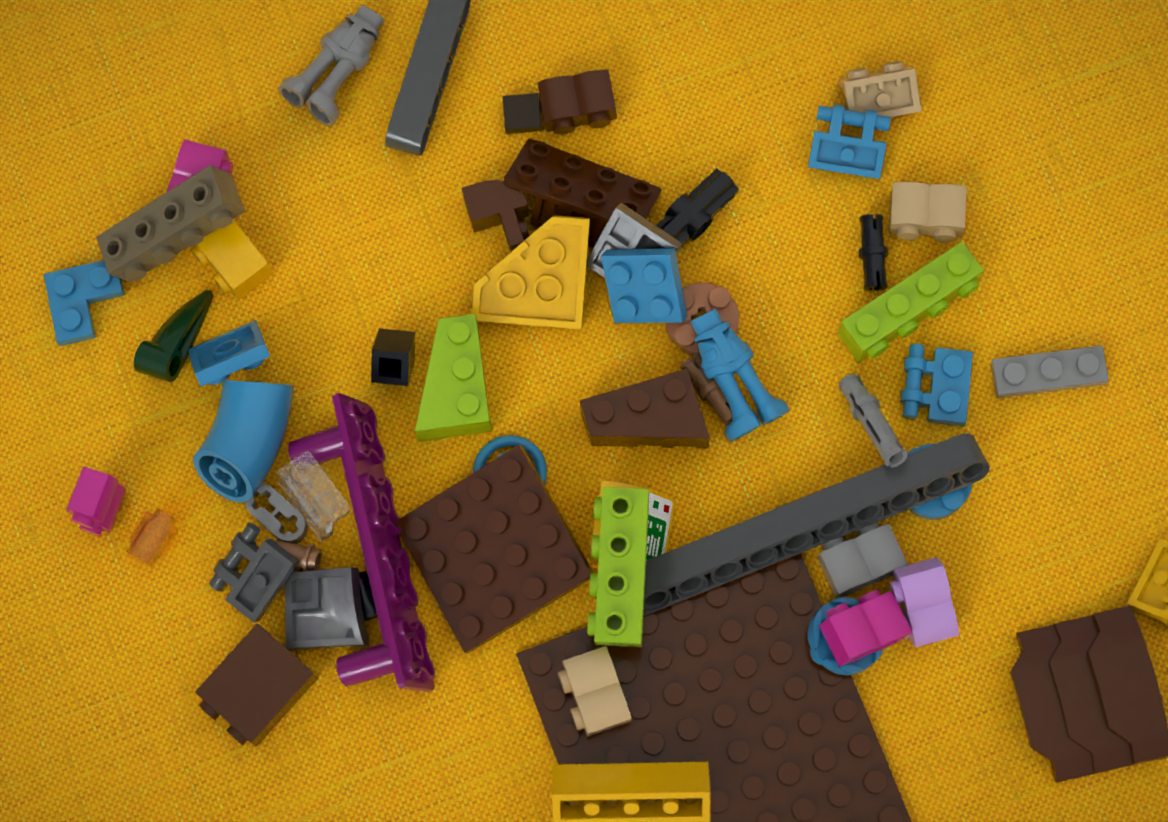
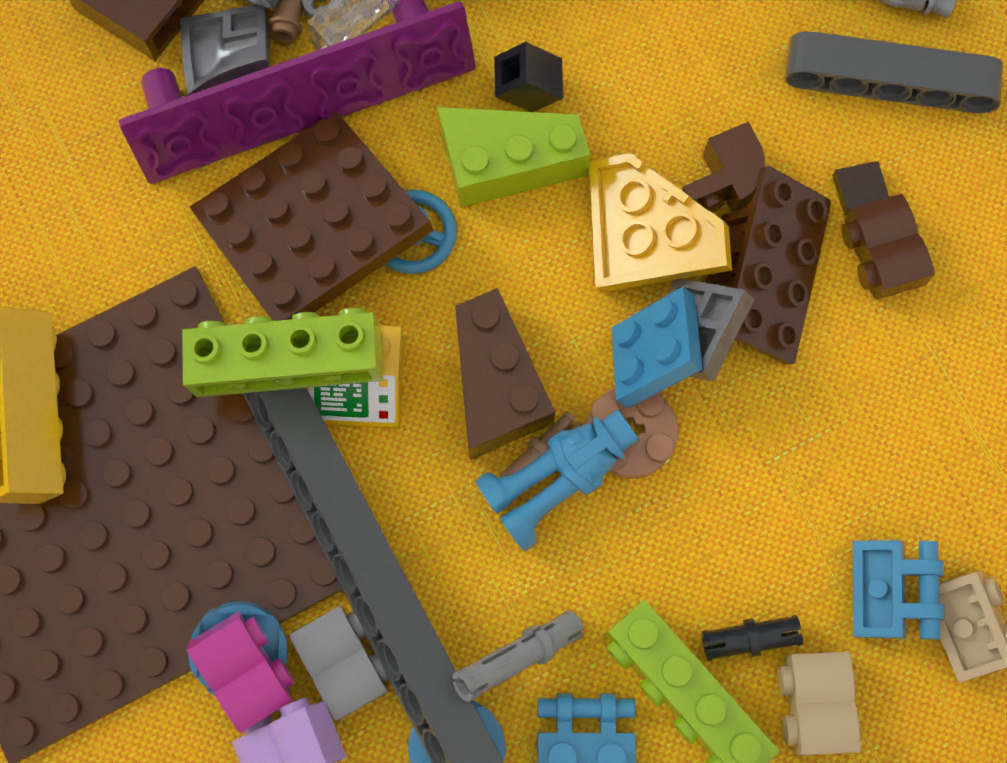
camera: 80 degrees right, 0 degrees up
(595, 691) = (140, 355): tan brick -> none
(695, 211) = (766, 403): black piece -> none

